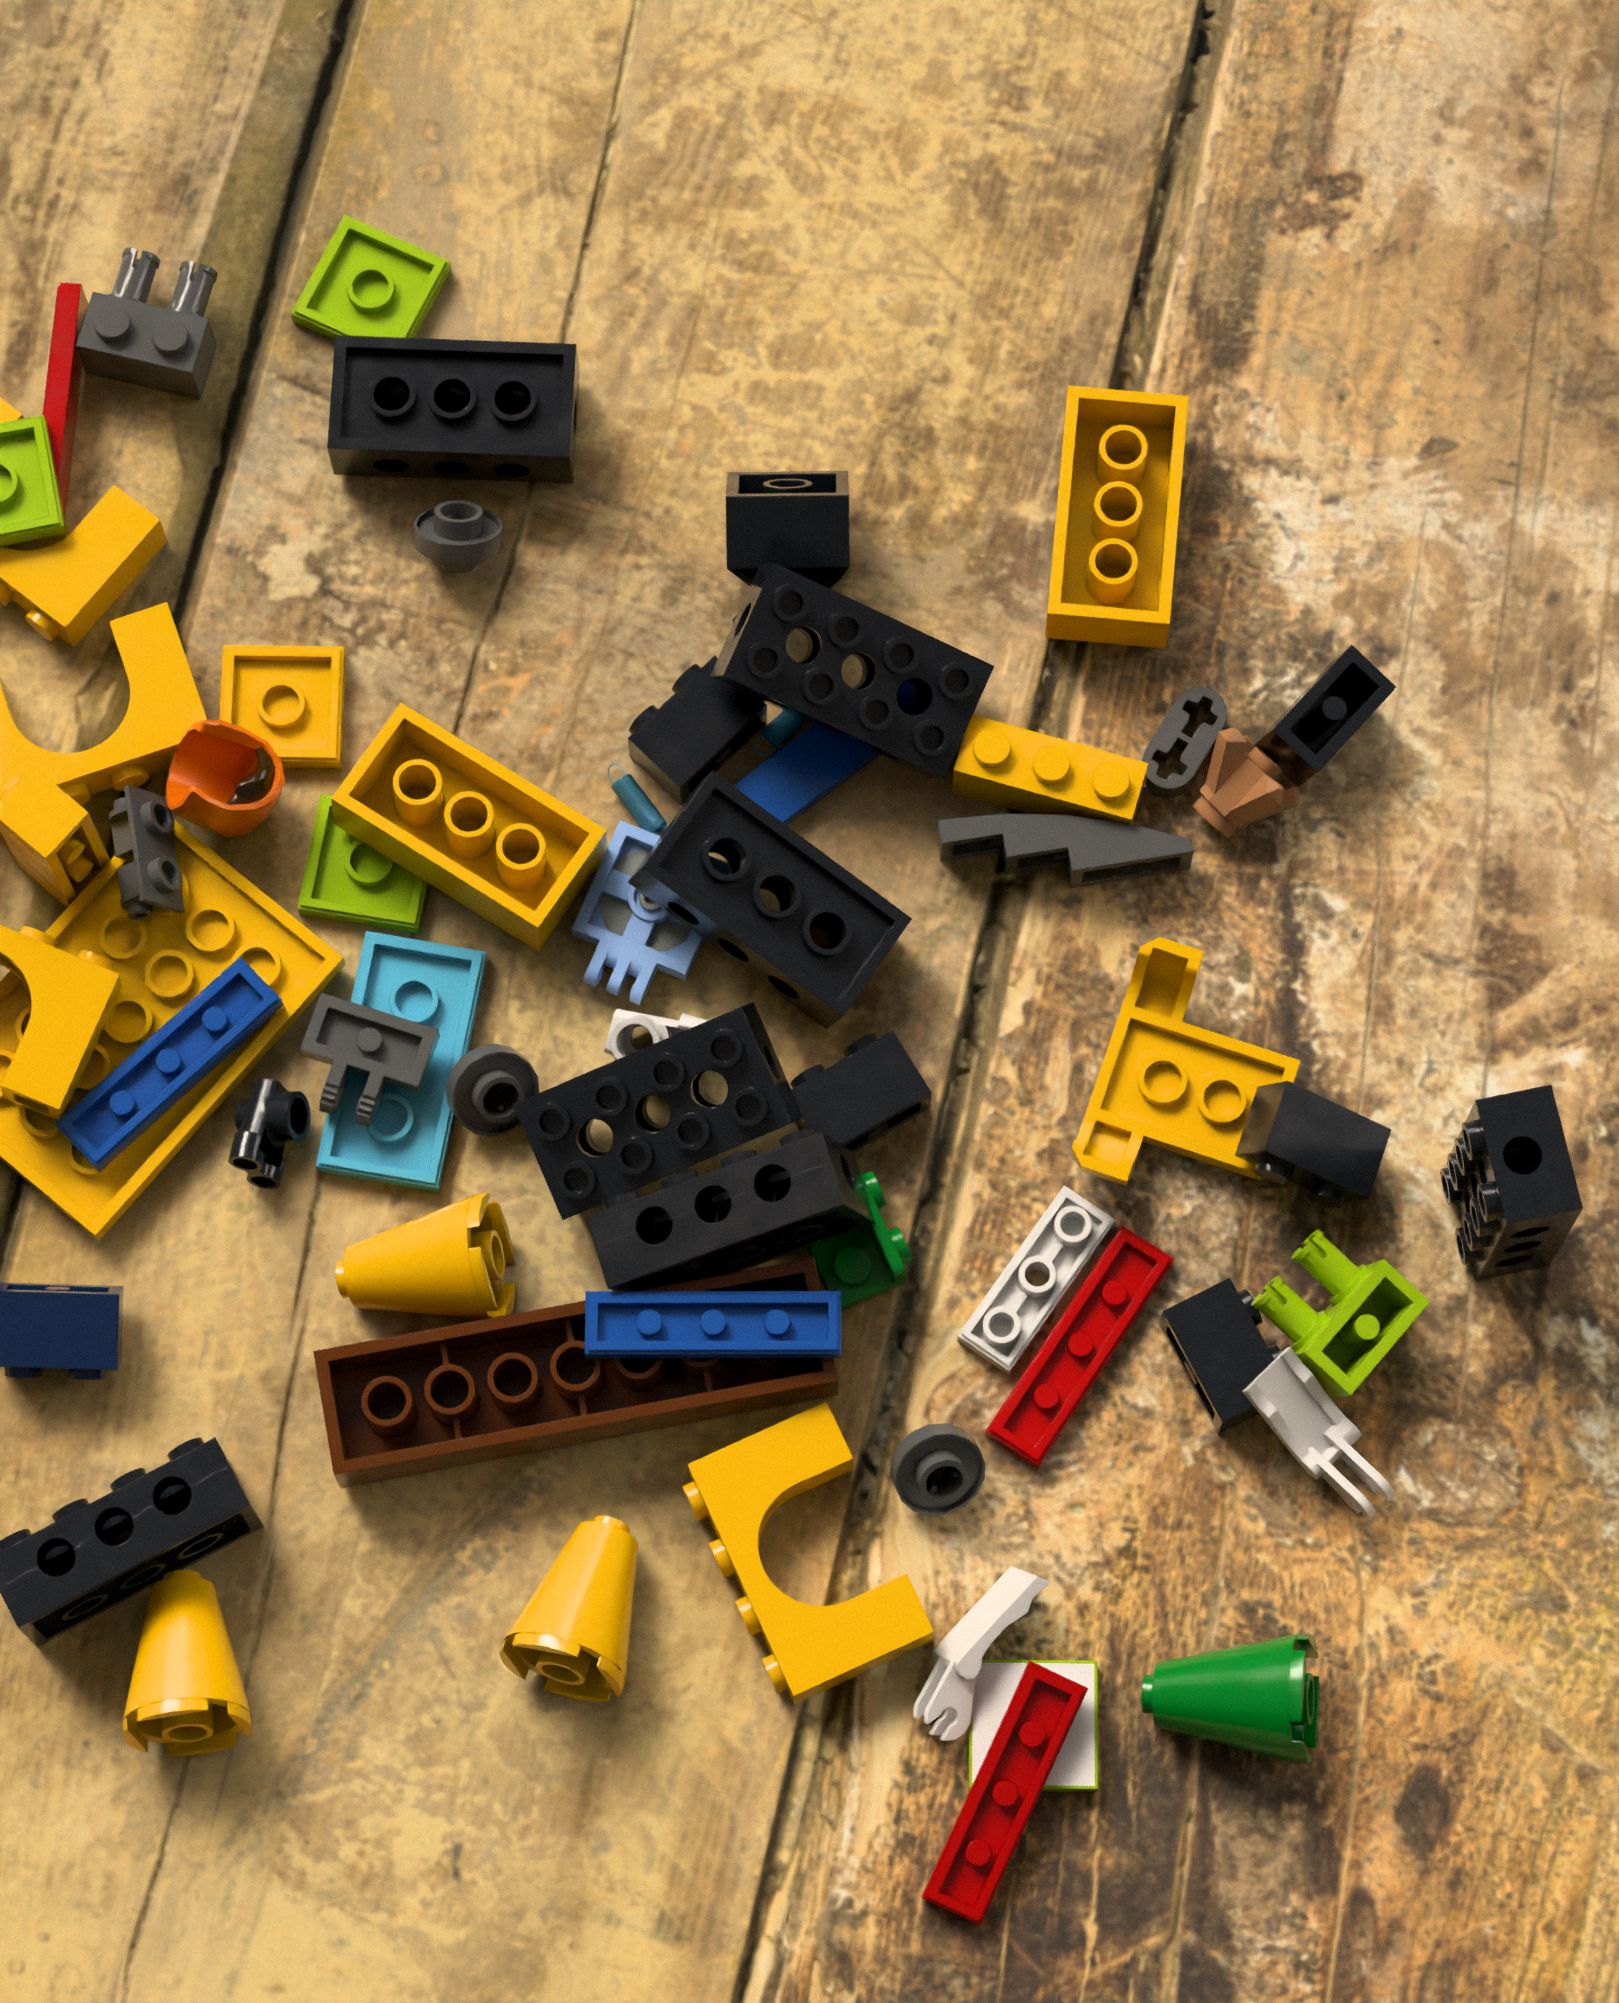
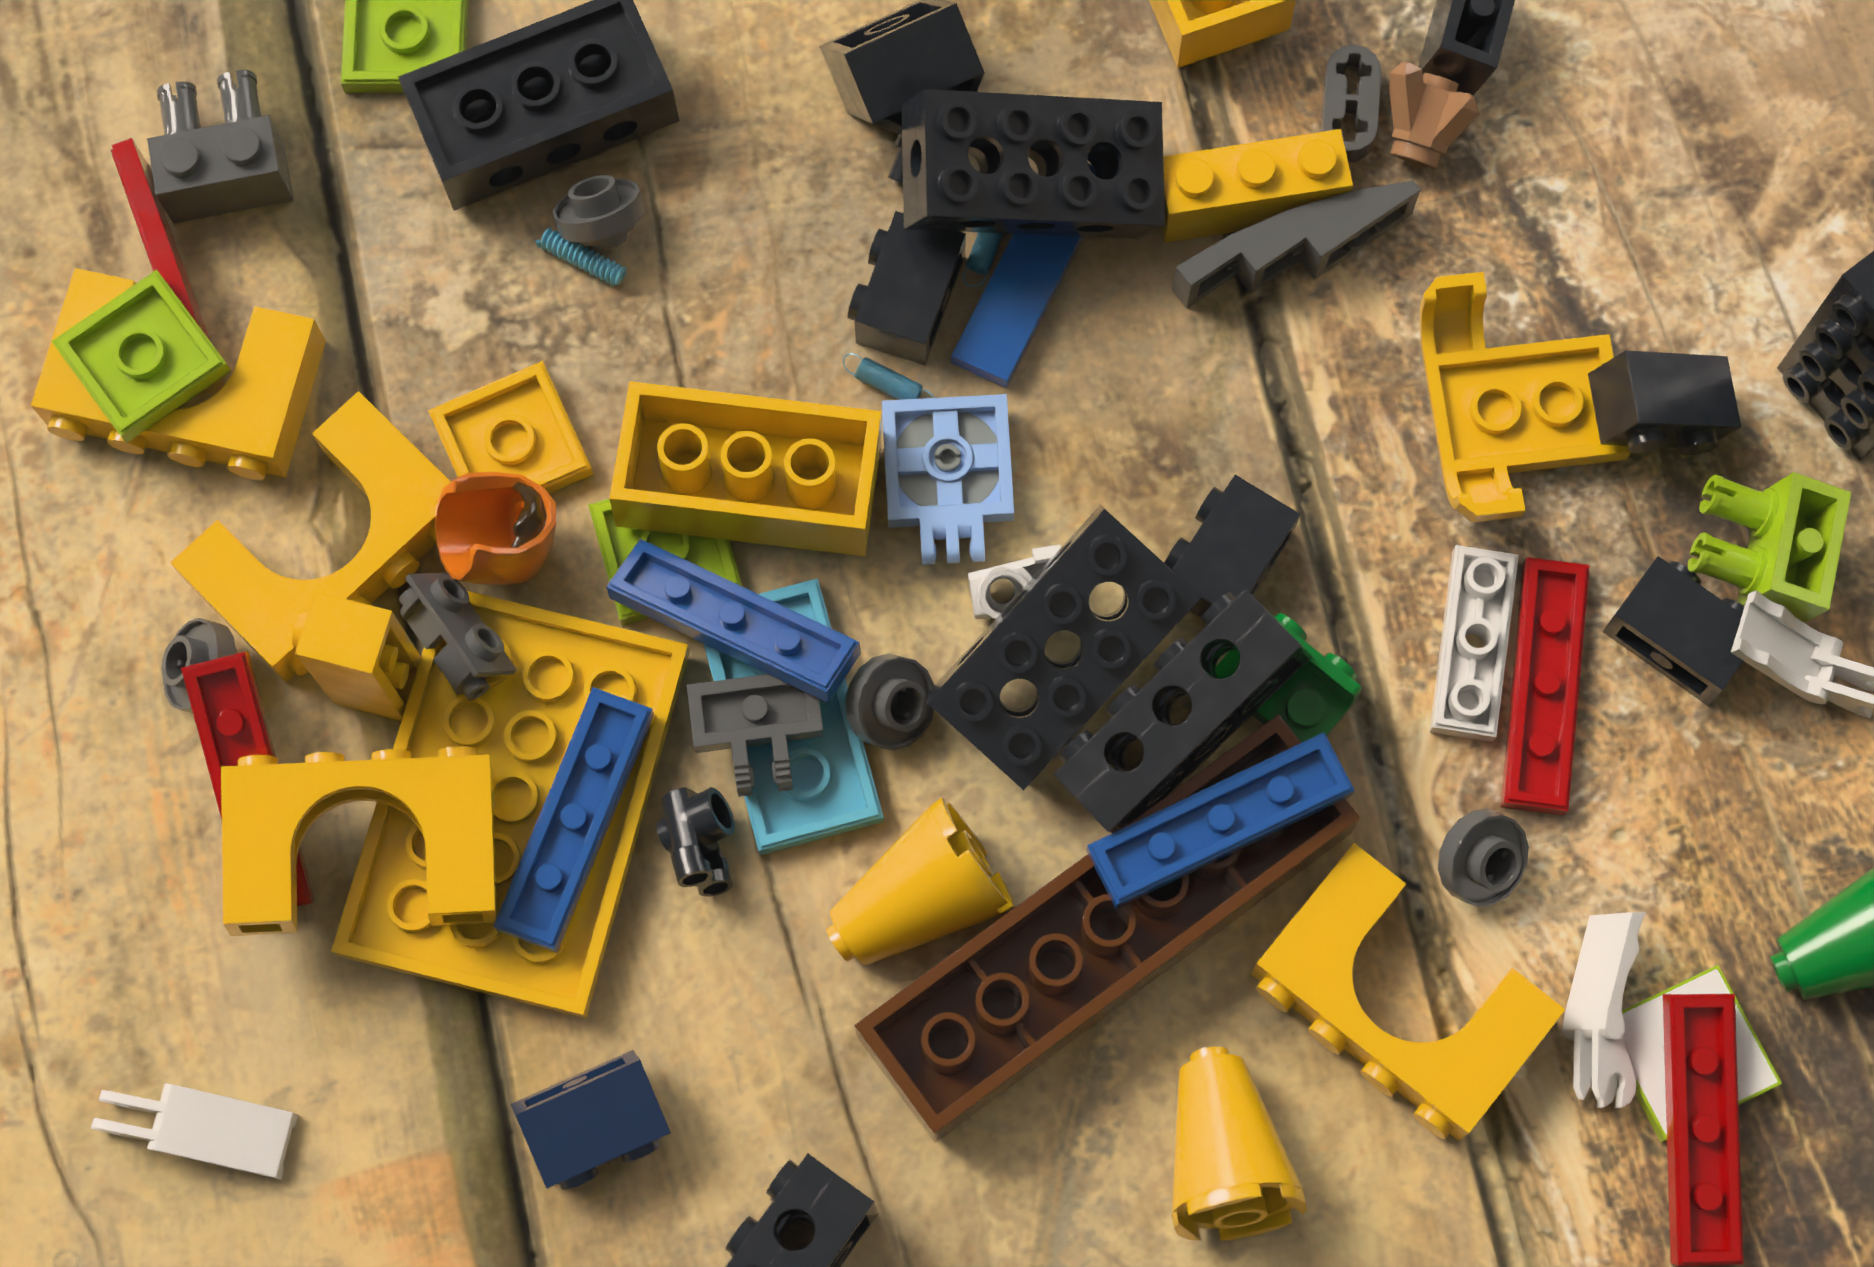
camera: 25 degrees left, 0 degrees up
(390, 955) = (734, 620): none -> blue tile
(426, 570) = (582, 257): none -> medium azure piece
(803, 879) = (1089, 377): black brick -> none

